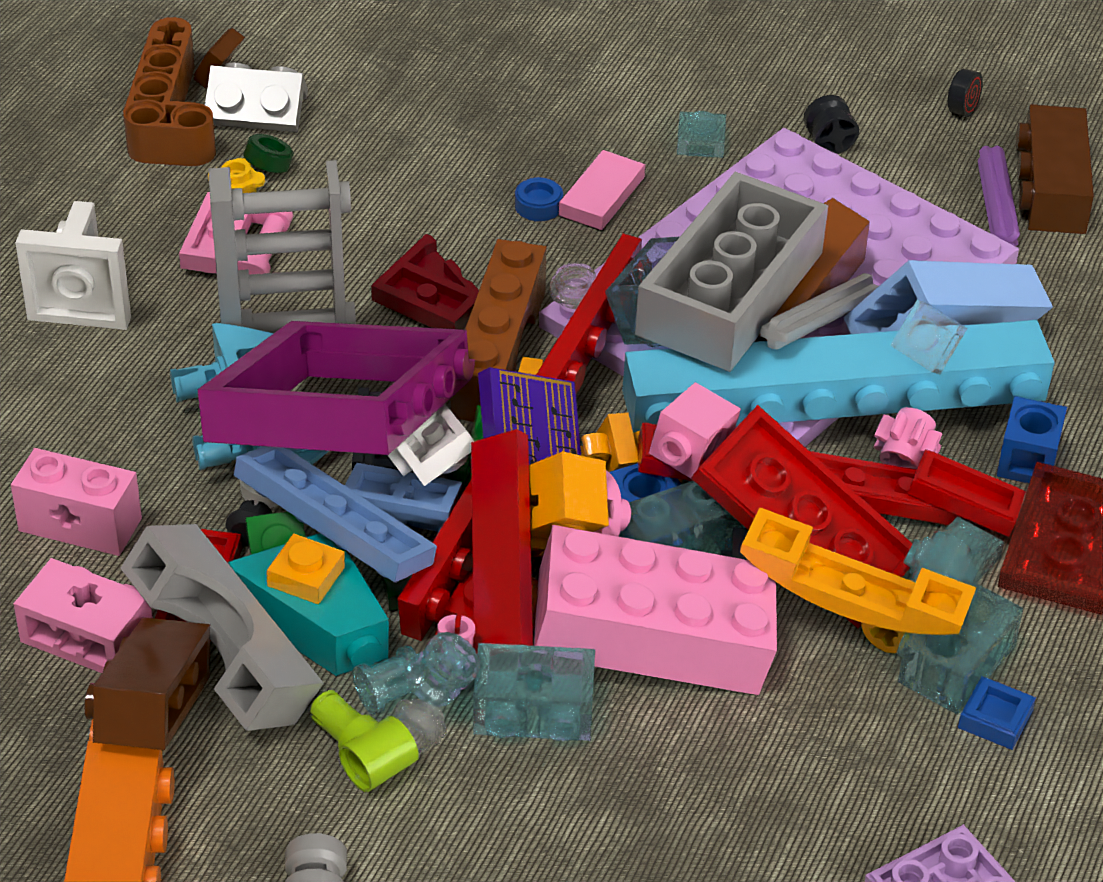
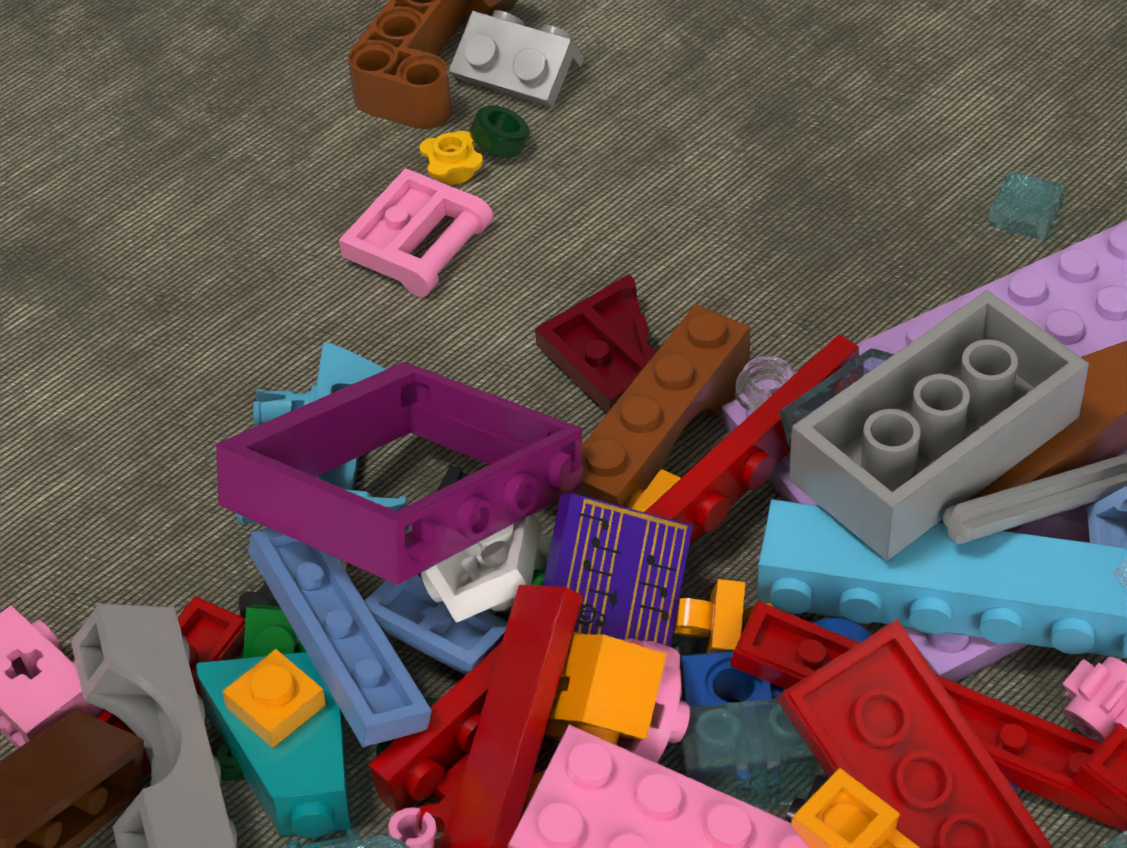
camera: 25 degrees right, 5 degrees up
(74, 273) = (204, 242): white bracket -> none
(76, 501) = (84, 534): bright pink brick -> none
(234, 245) = (356, 305): light grey fence -> none
(538, 199) = (790, 252): blue tile -> none
(602, 190) = (871, 256): bright pink tile -> none
(693, 428) = (803, 630): bright pink brick -> none

